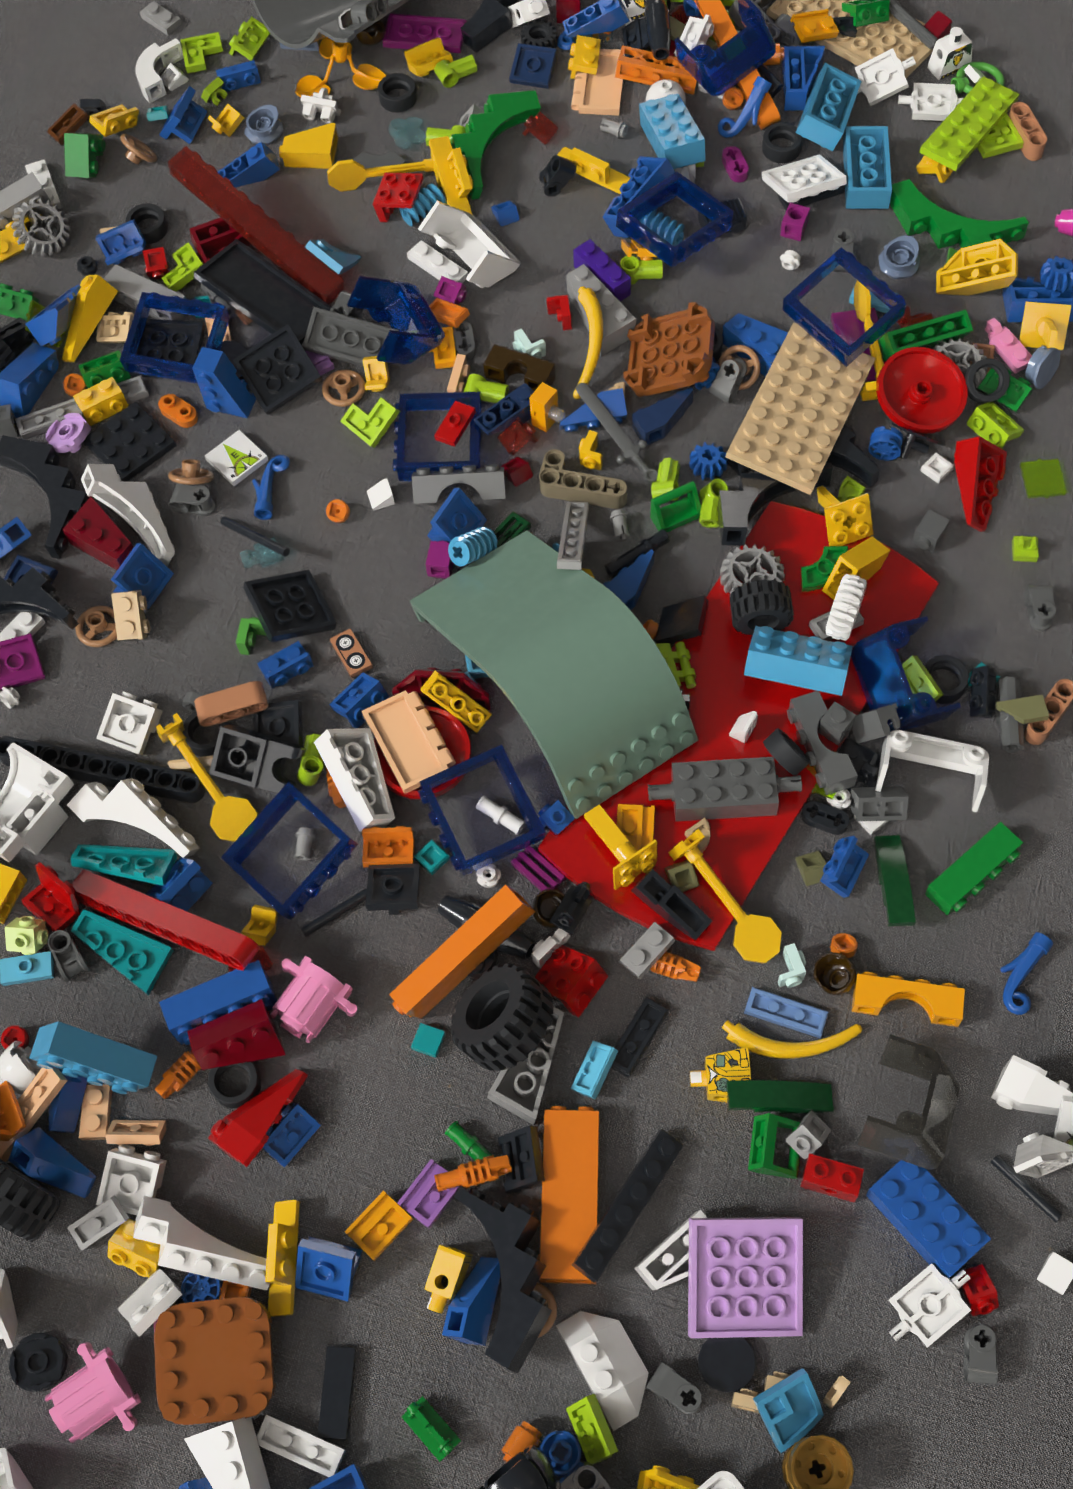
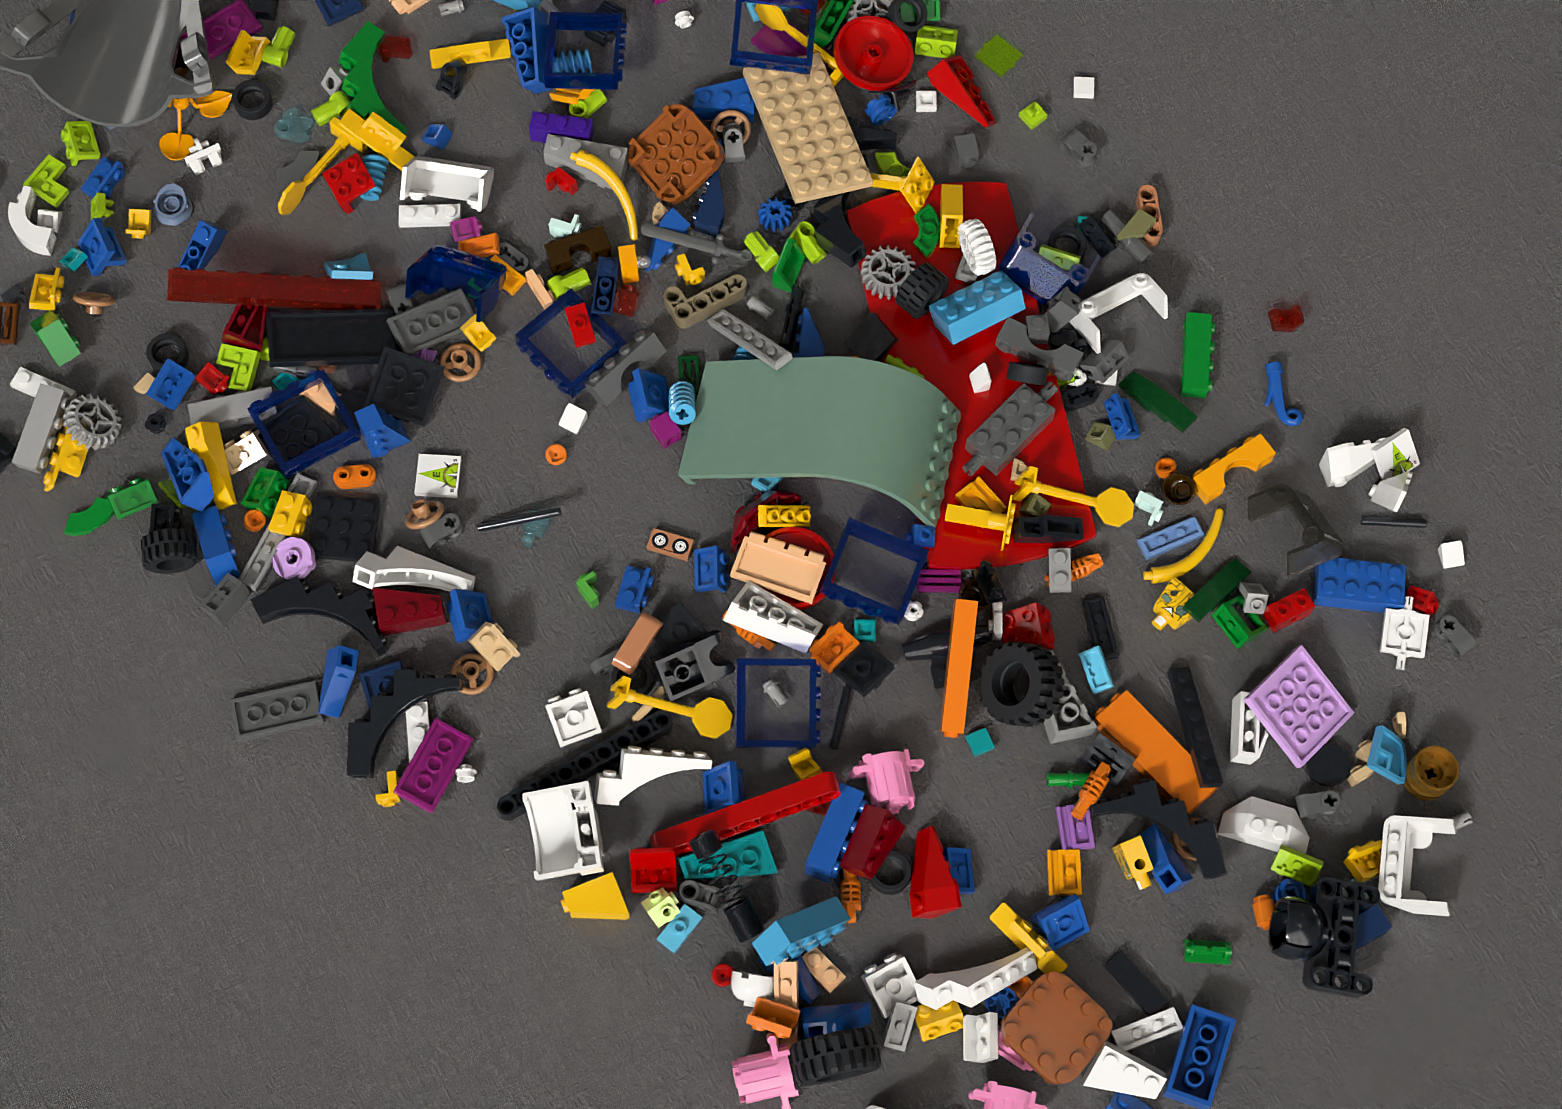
camera: 50 degrees left, 5 degrees up
(76, 999) = (741, 913): none -> black piece
(134, 863) = (679, 801): teal wing -> none
(136, 1132) = (863, 955): light nougat plate -> none
(263, 507) = (484, 481): blue plant -> none
(289, 605) = (599, 546): black plate -> none
(310, 148) = (233, 196): yellow slope -> none
(311, 760) = (731, 638): lime piece -> none
(370, 426) = (516, 375): lime plate -> none
(500, 815) = (881, 566): white pin -> none
(517, 471) = (649, 322): dark red slope -> none

